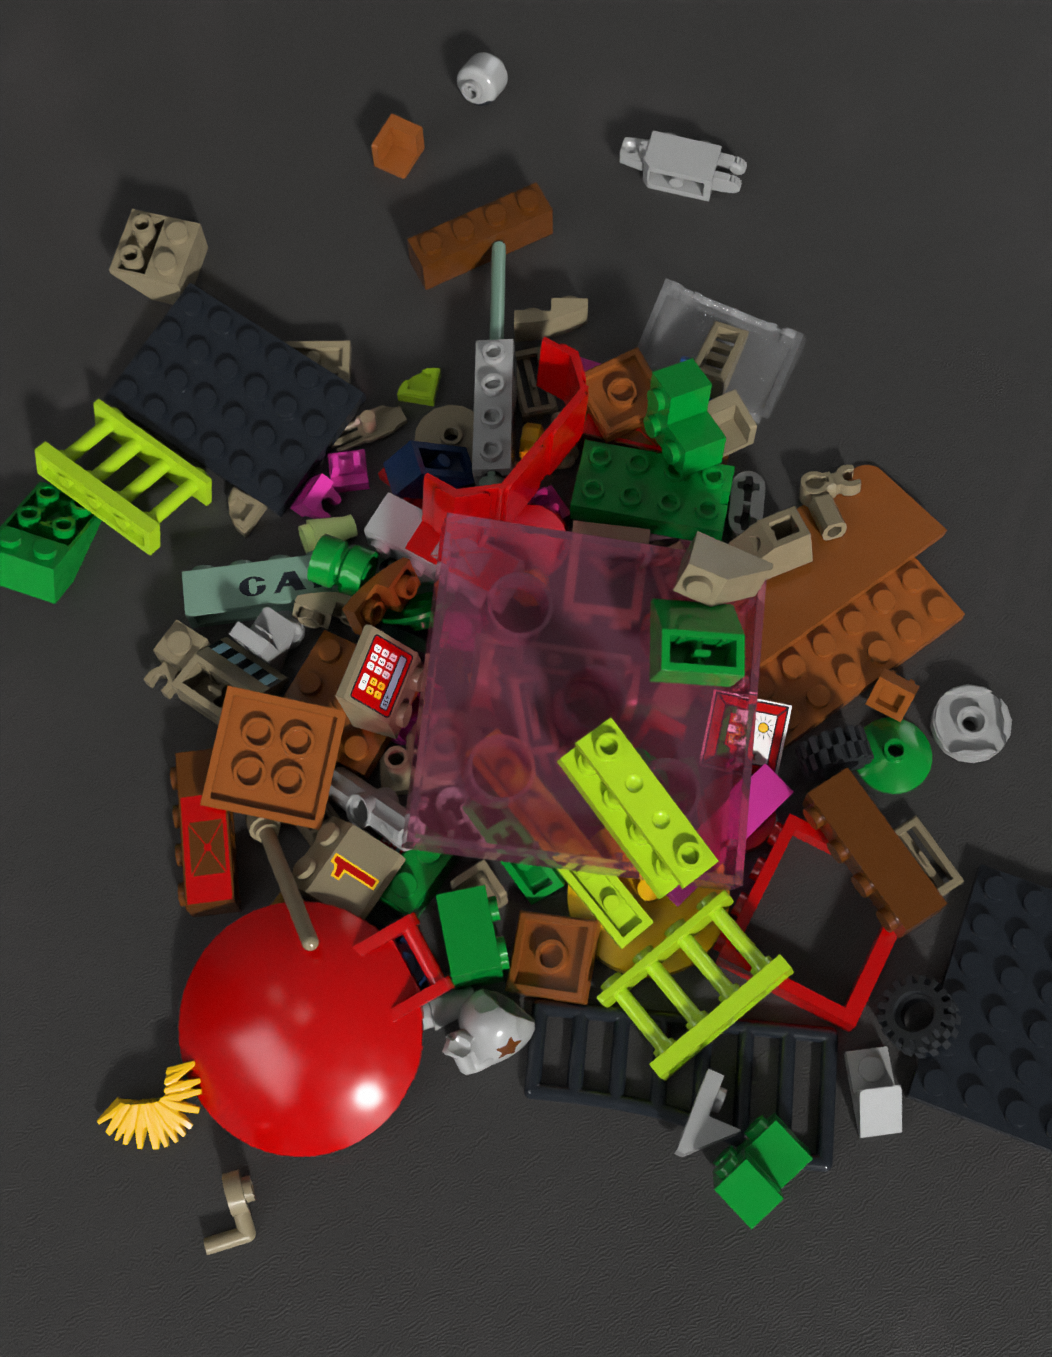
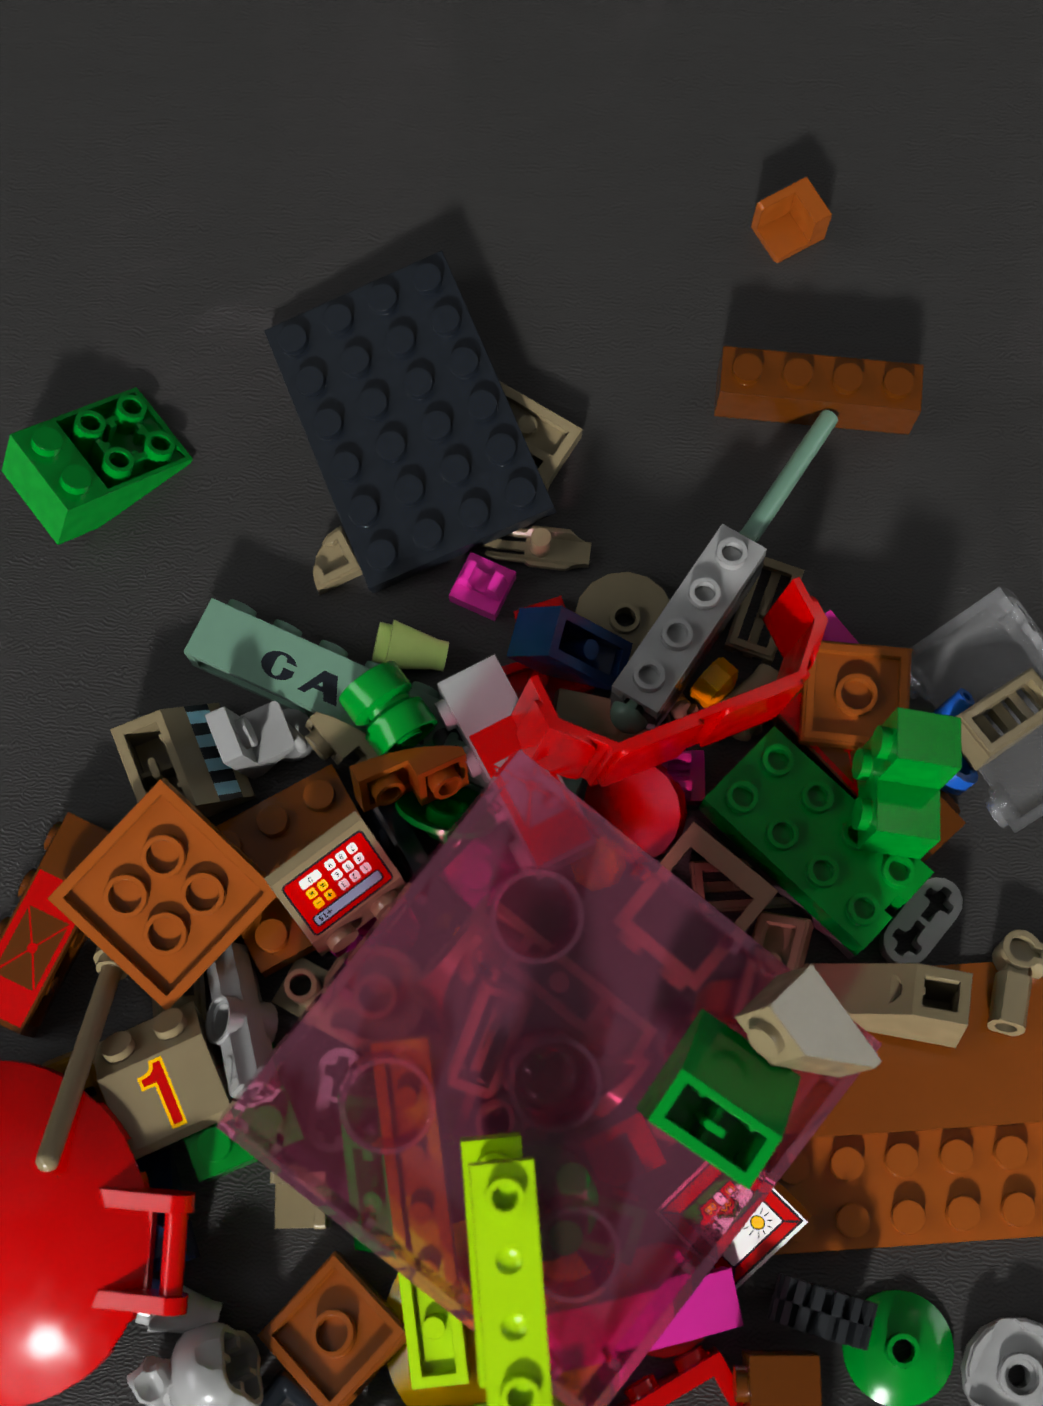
camera: 30 degrees right, 5 degrees up
(116, 506) = (189, 473): lime fence -> none
(159, 255) = (431, 195): dark tan slope -> none
(174, 653) = (148, 689): dark tan brick -> none
(309, 500) = (419, 593): dark pink tile -> none
(421, 387) = (631, 534): lime tile -> none
(470, 939) = (246, 1259): green brick -> none
(482, 79) = (944, 193): light grey head -> none
(565, 316) = (855, 549): dark tan slope -> none
(733, 420) = (965, 816): dark tan panel -> none
(892, 694) = (946, 1278): dark orange tile -> none

